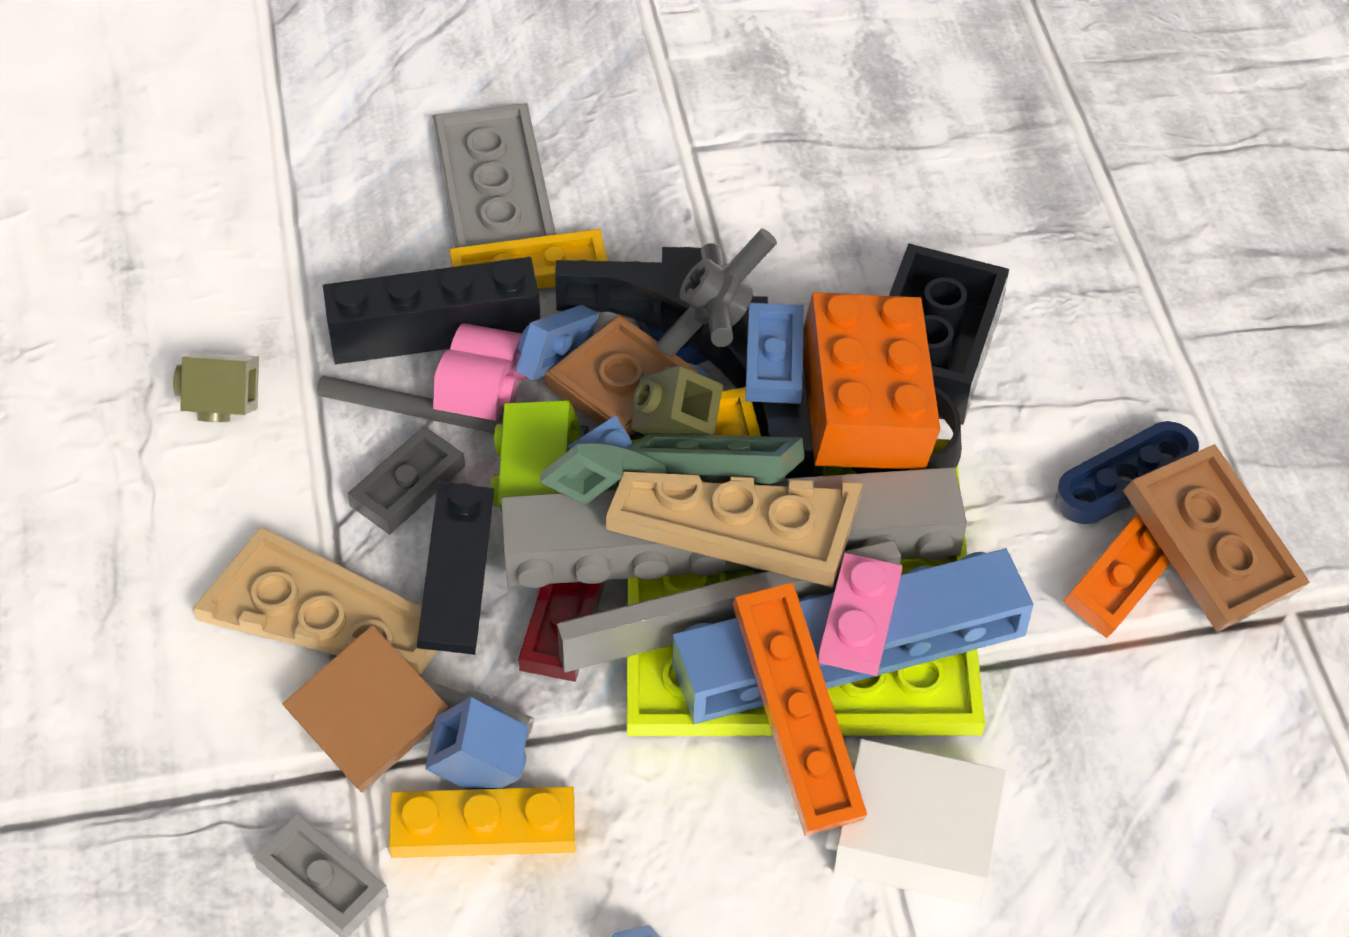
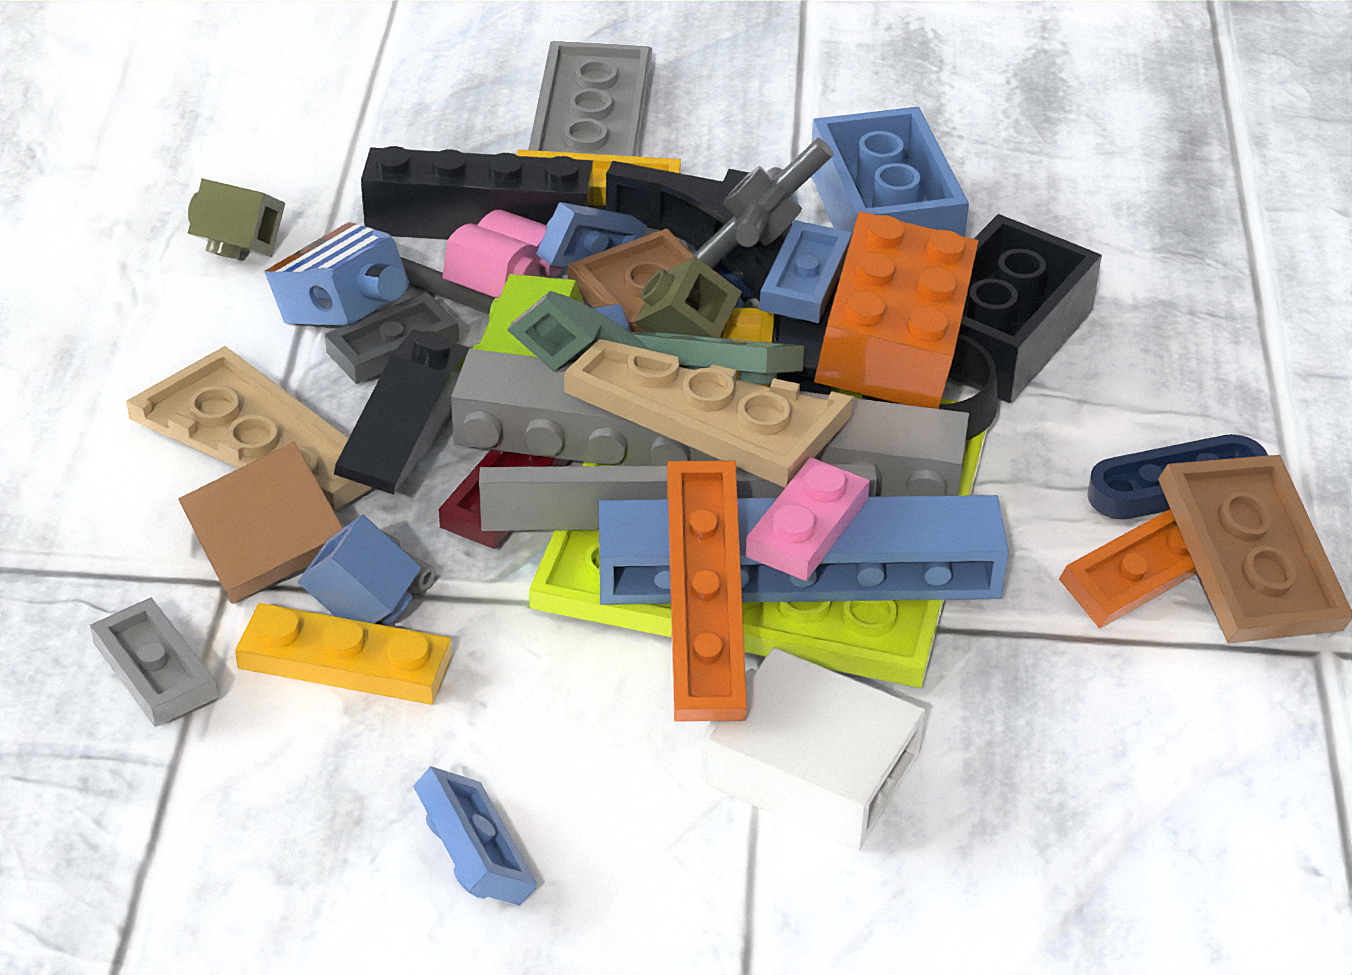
camera: 15 degrees right, 10 degrees down
(342, 430) = (356, 273): none -> medium blue torso
(817, 228) = (887, 167): none -> medium blue brick

